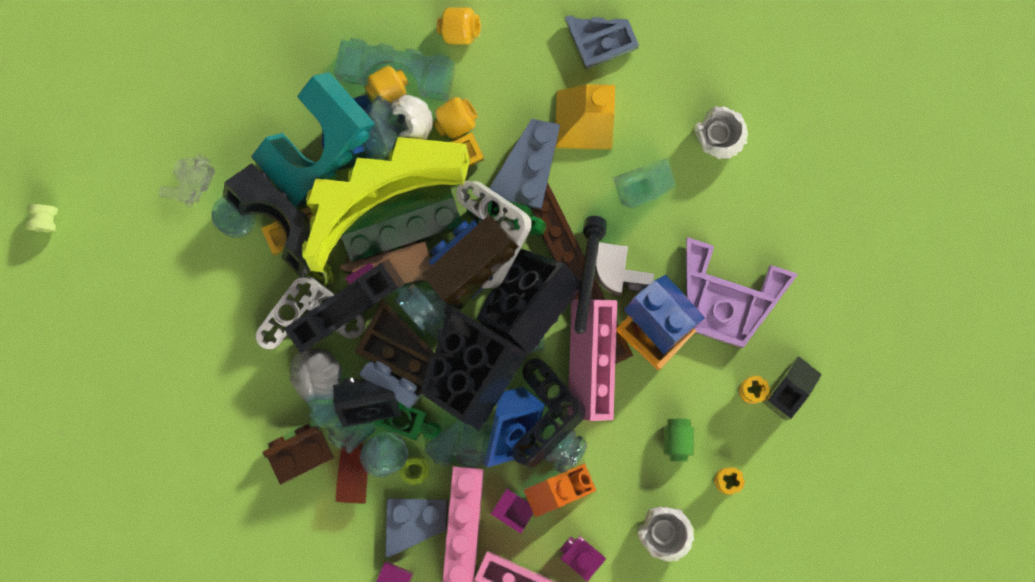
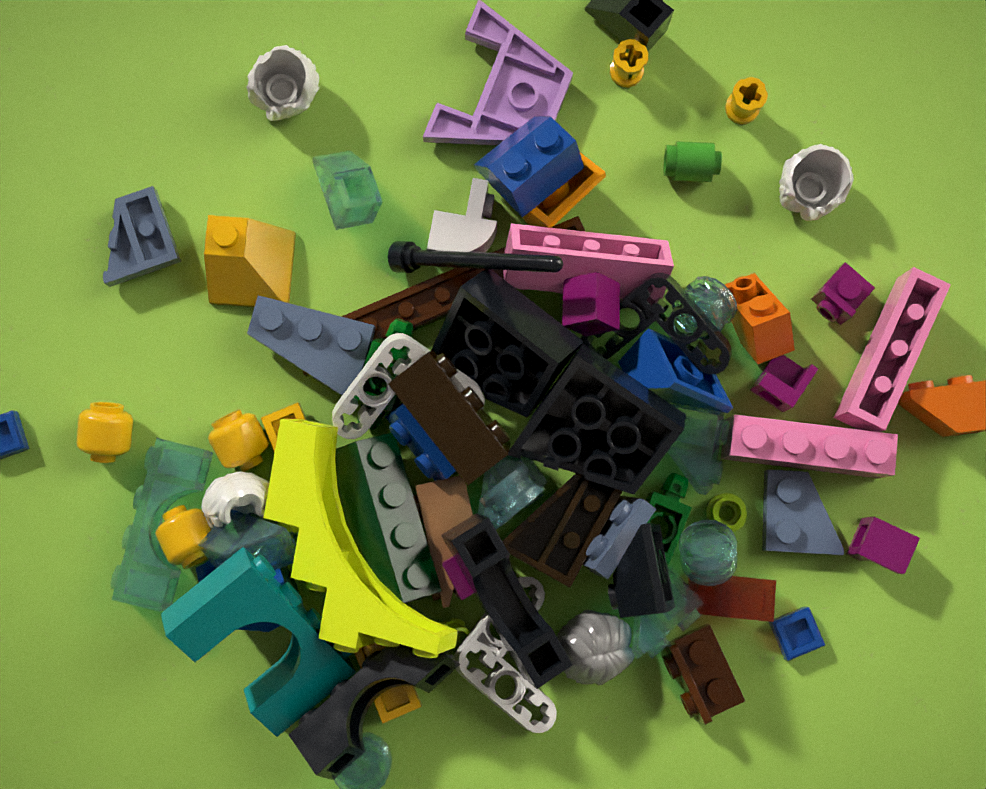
camera: 95 degrees left, 0 degrees up
(328, 523) = (796, 633): none -> blue tile
(559, 361) = (591, 304): none -> magenta panel

